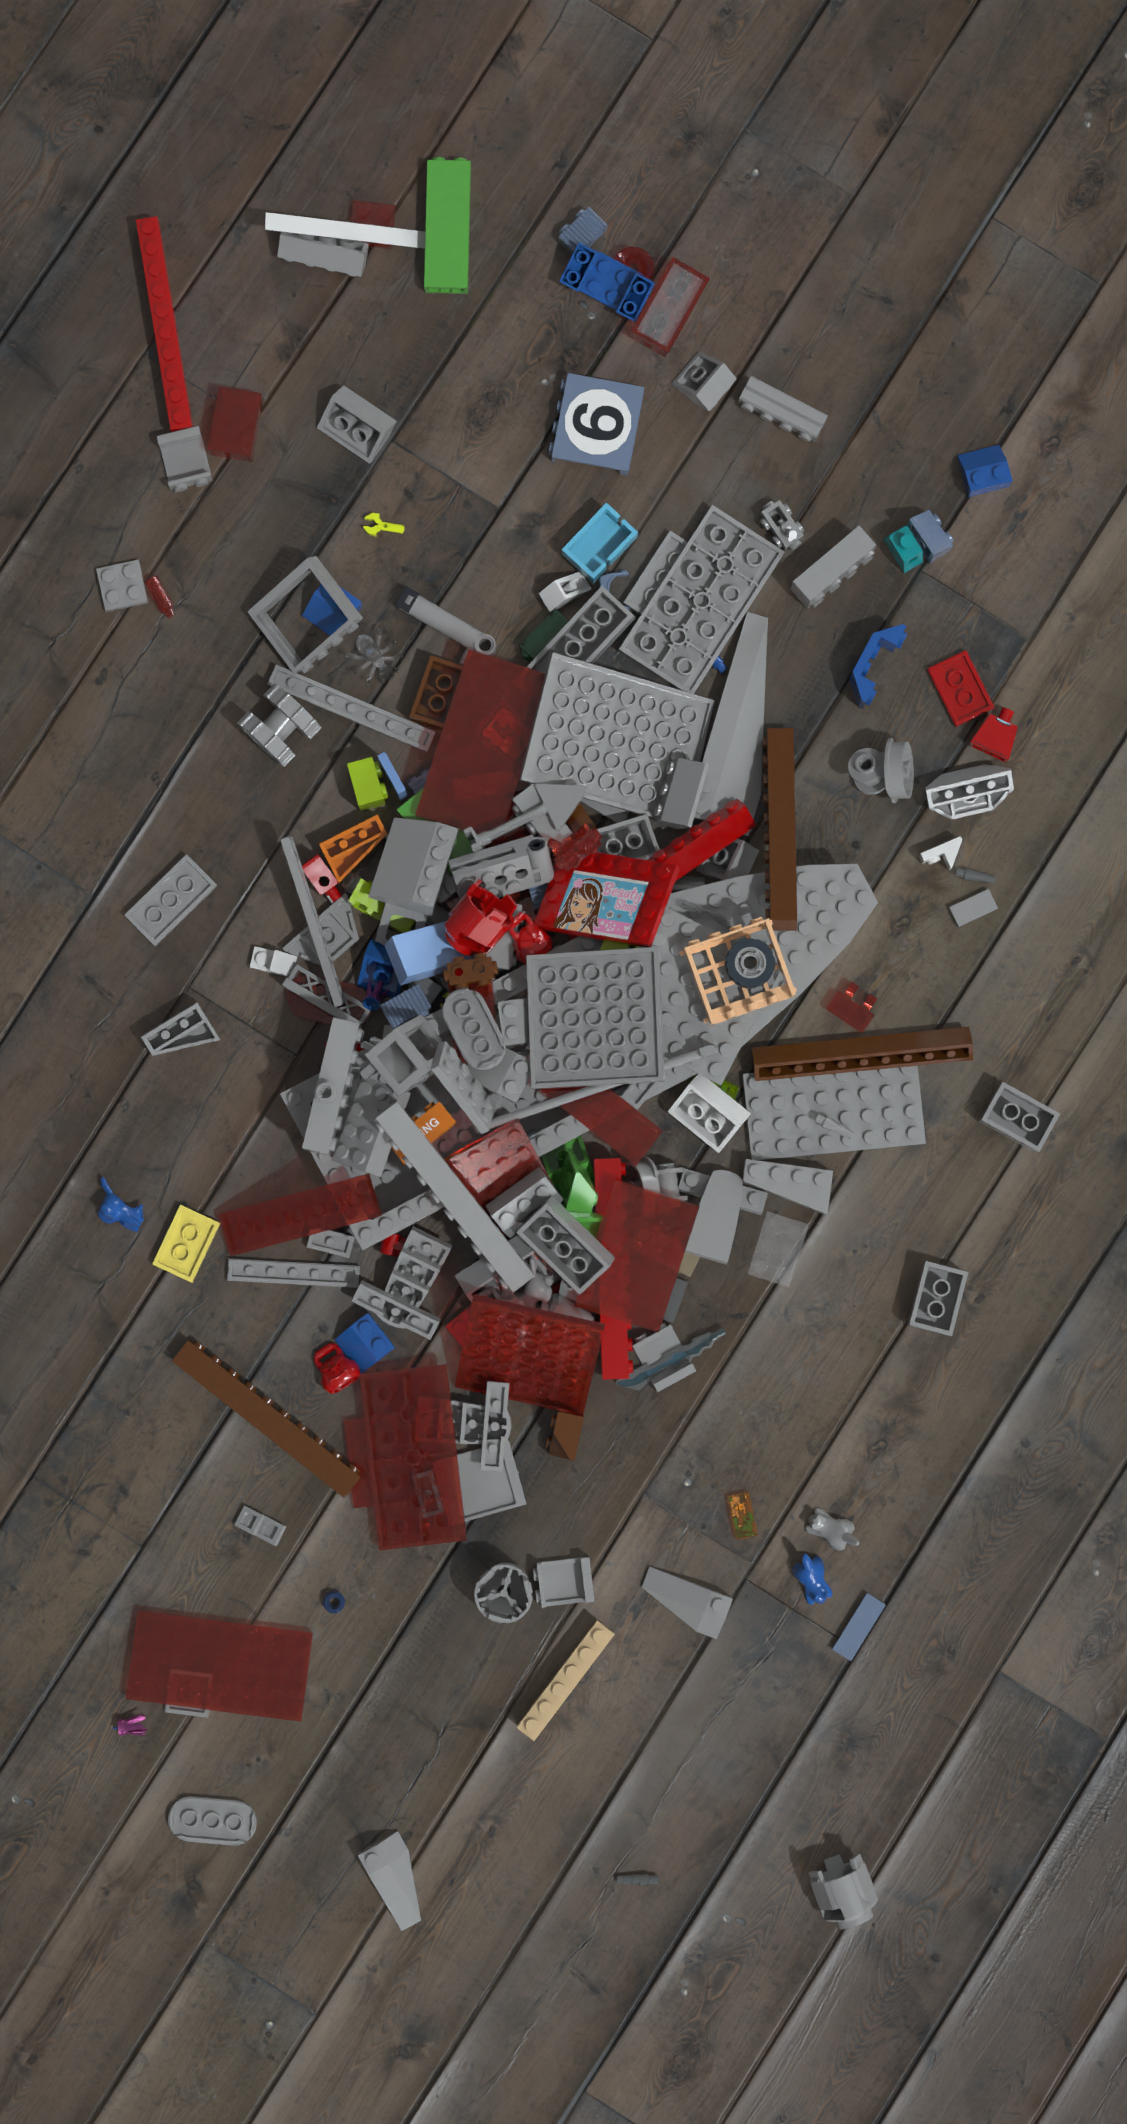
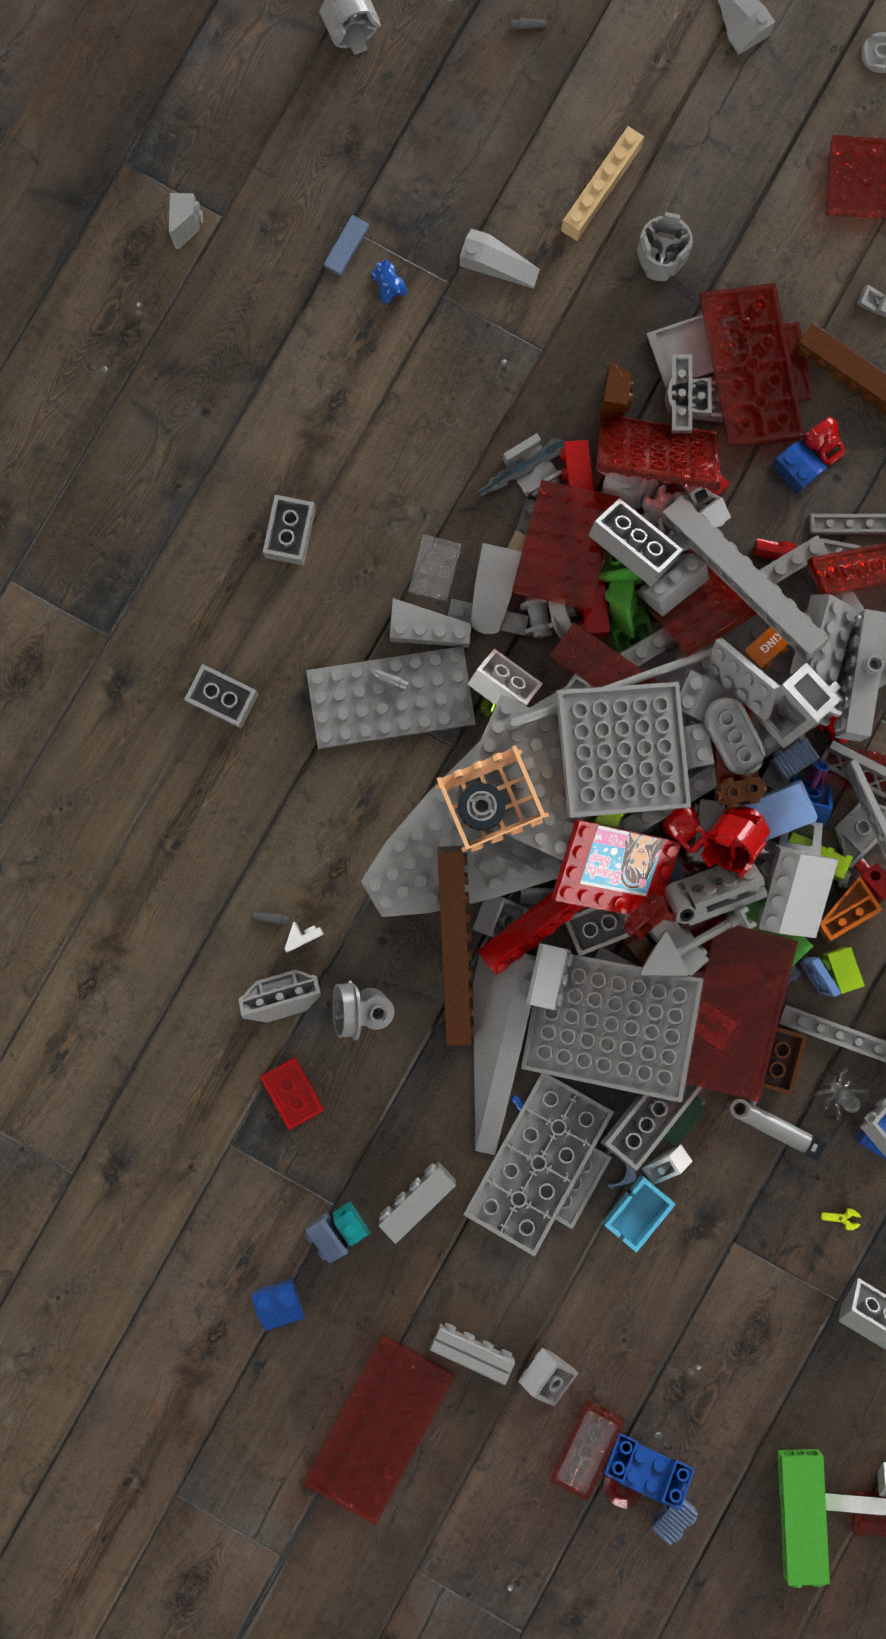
camera: 175 degrees right, 0 degrees up
(341, 1602) = (810, 235): dark blue plate -> none
(408, 1285) = (768, 514): light grey slope -> none
(564, 1581) = (608, 269): light grey panel -> none
(597, 422) = (647, 1330): panel -> none
(742, 1516) = (454, 334): clear orange tile -> none
(786, 531) = (463, 1235): light grey brick -> none
(836, 1531) = (371, 324): light grey animal -> none
(850, 1011) = (379, 785): clear red plate -> none
(862, 1053) = (367, 746): reddish brown brick -> none
(884, 338) = (378, 1429): none -> clear red plate
(888, 639) = (361, 1135): blue slope -> none
(973, 908) = (271, 888): light grey tile -> none
(996, 736) = (256, 1050): red torso -> none
(1041, 1662) = (184, 218): none -> light grey slope

